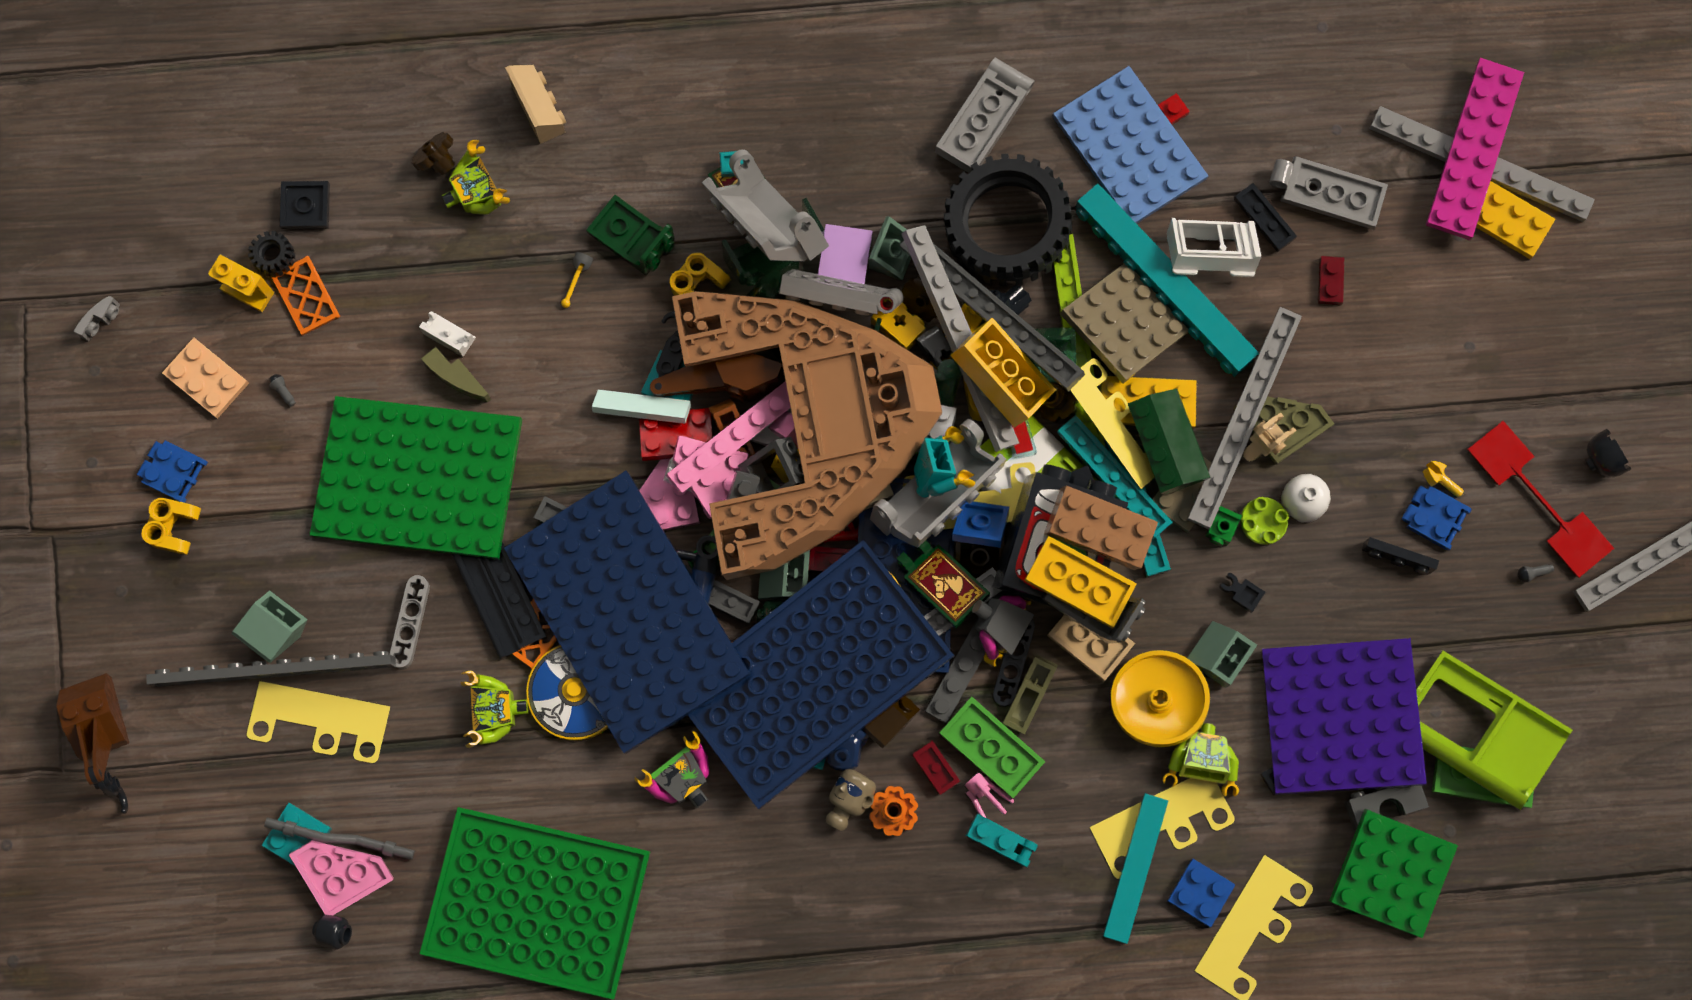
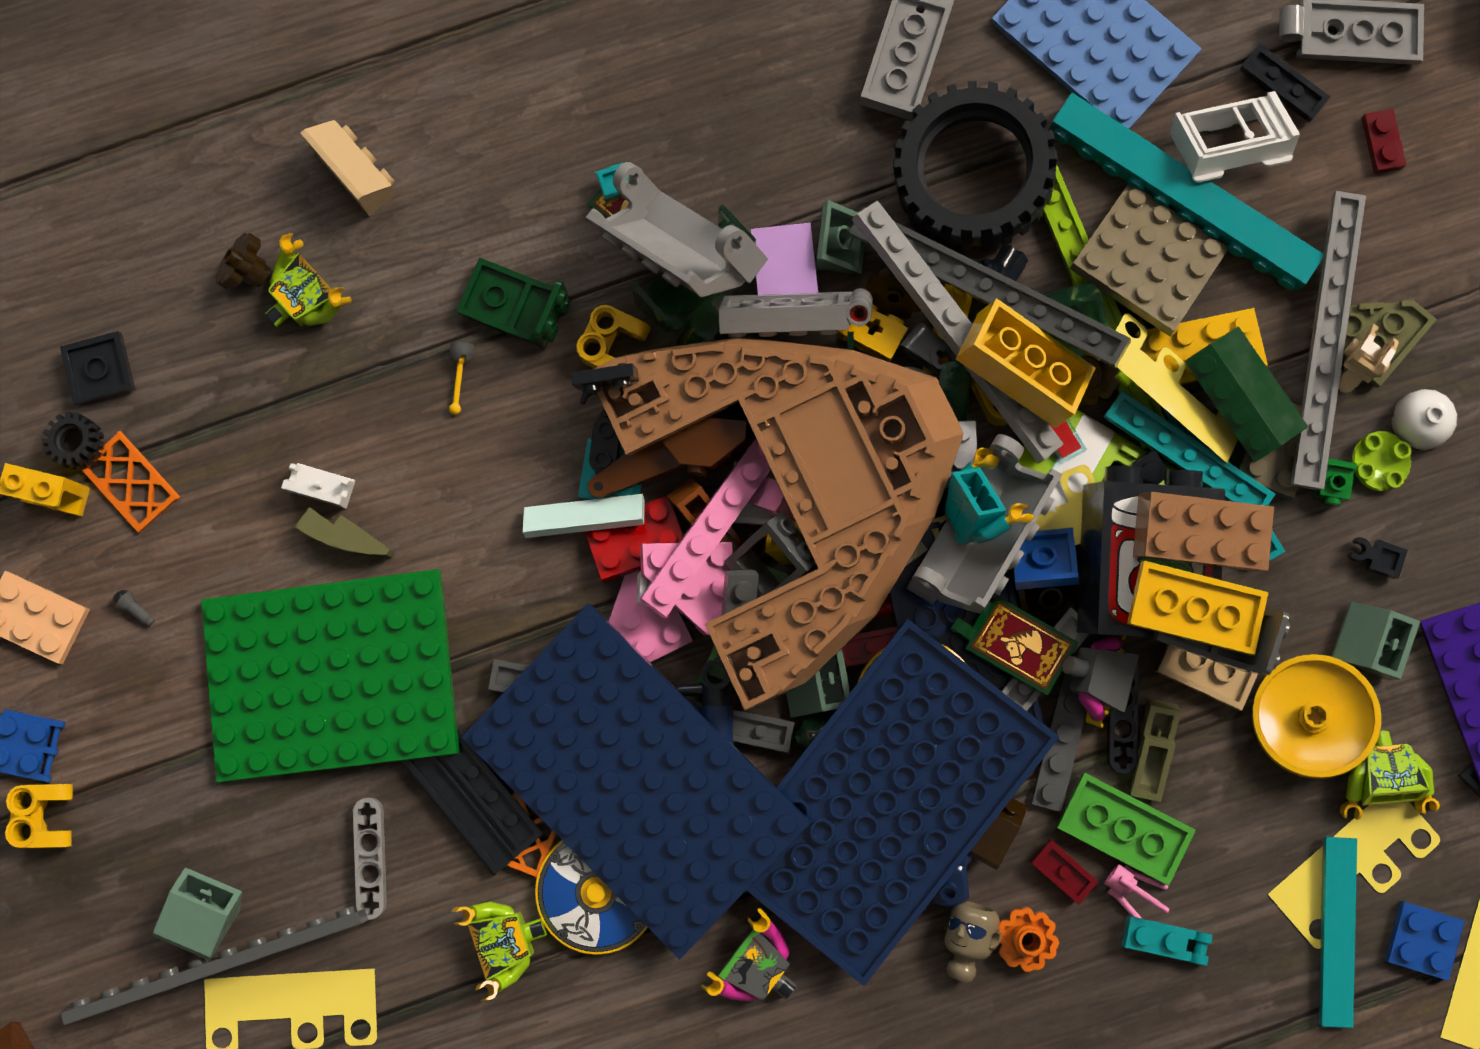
camera: 10 degrees left, 5 degrees up
(691, 303) = (617, 376): none -> black plate

